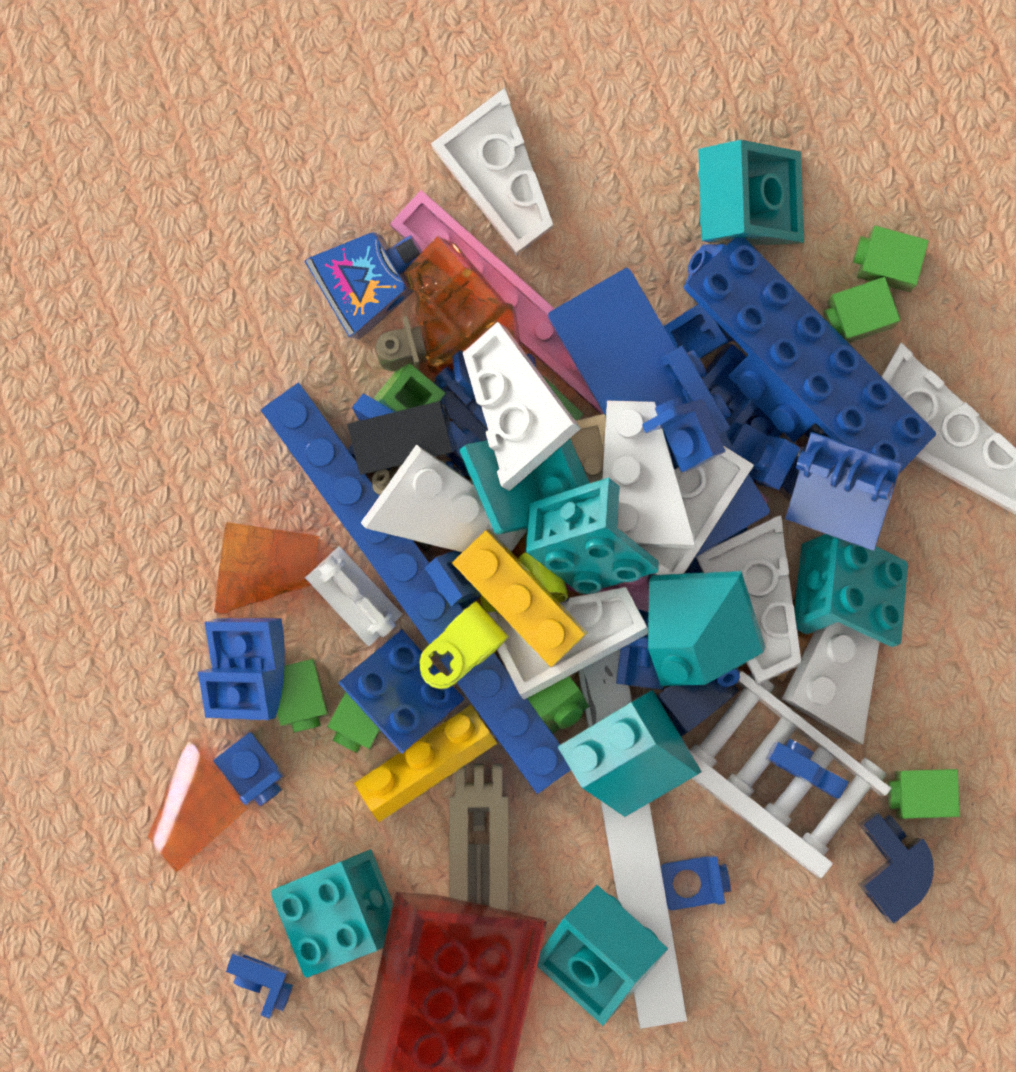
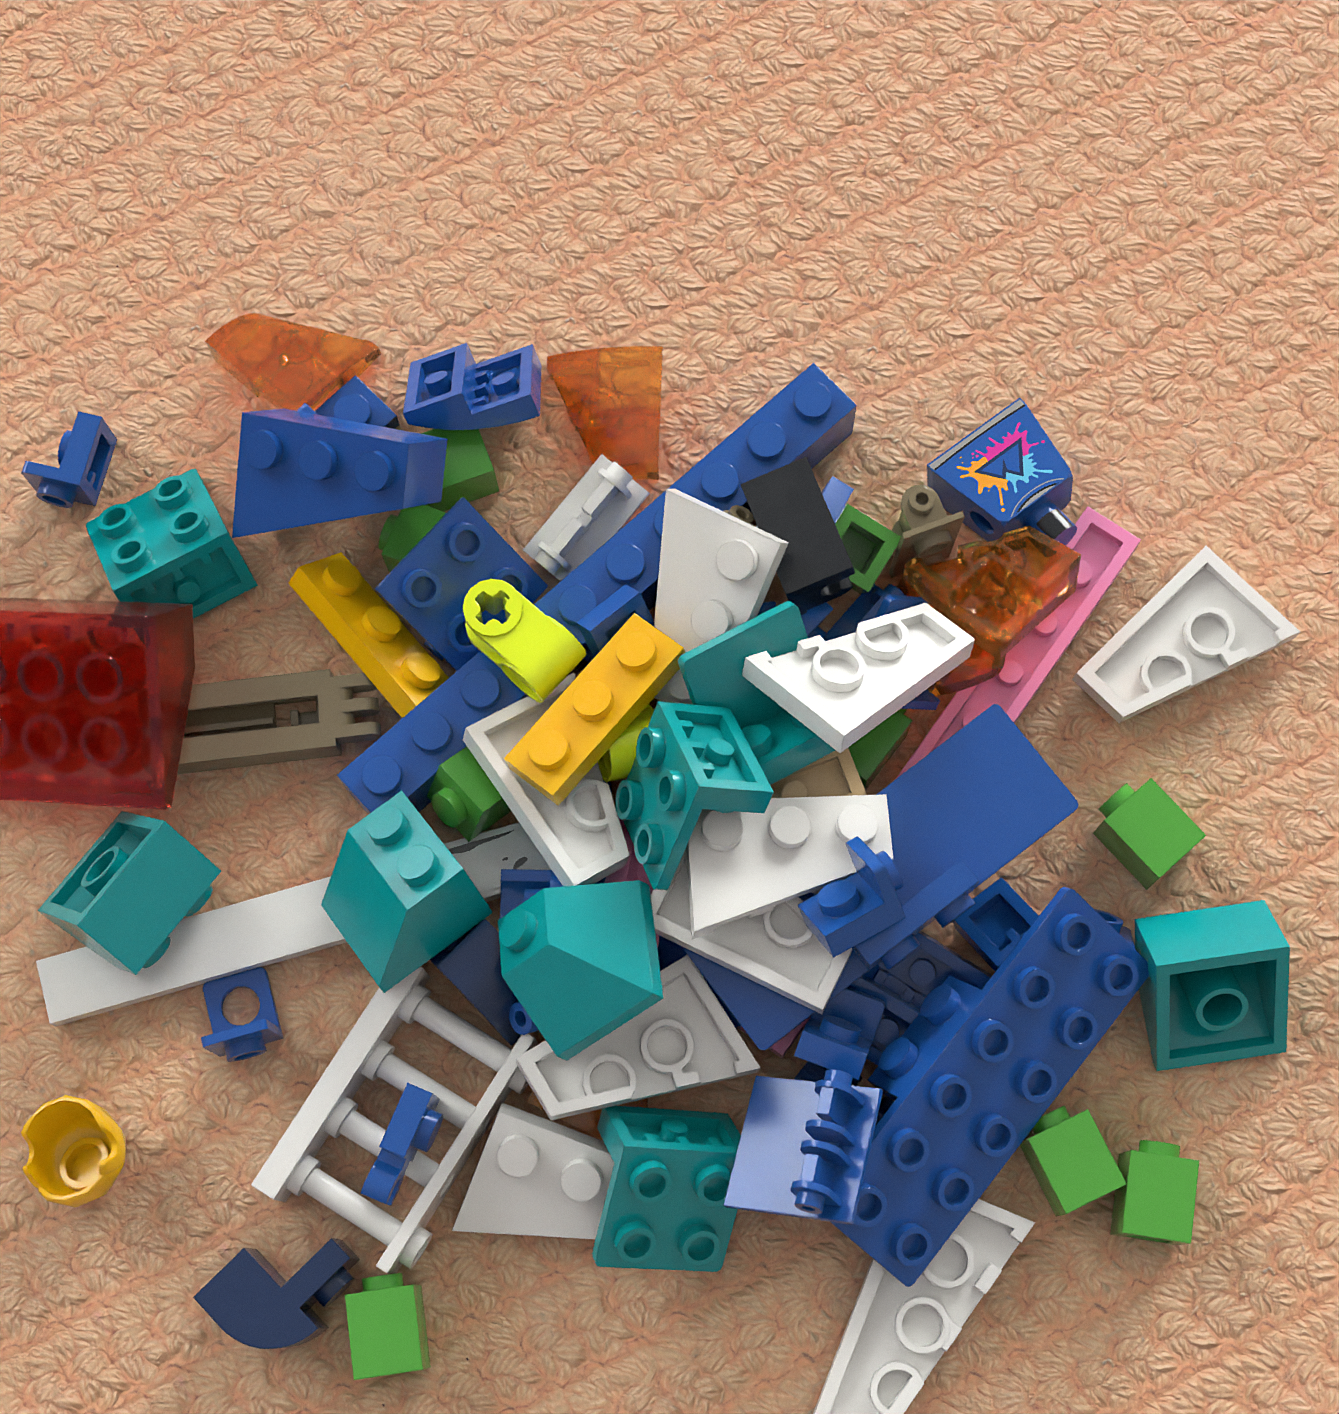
camera: 90 degrees right, 10 degrees down
(306, 778) = (327, 469): none -> blue wedge
(638, 221) = (1146, 831): none -> bright green brick
(782, 1005) = (73, 1151): none -> yellow hair

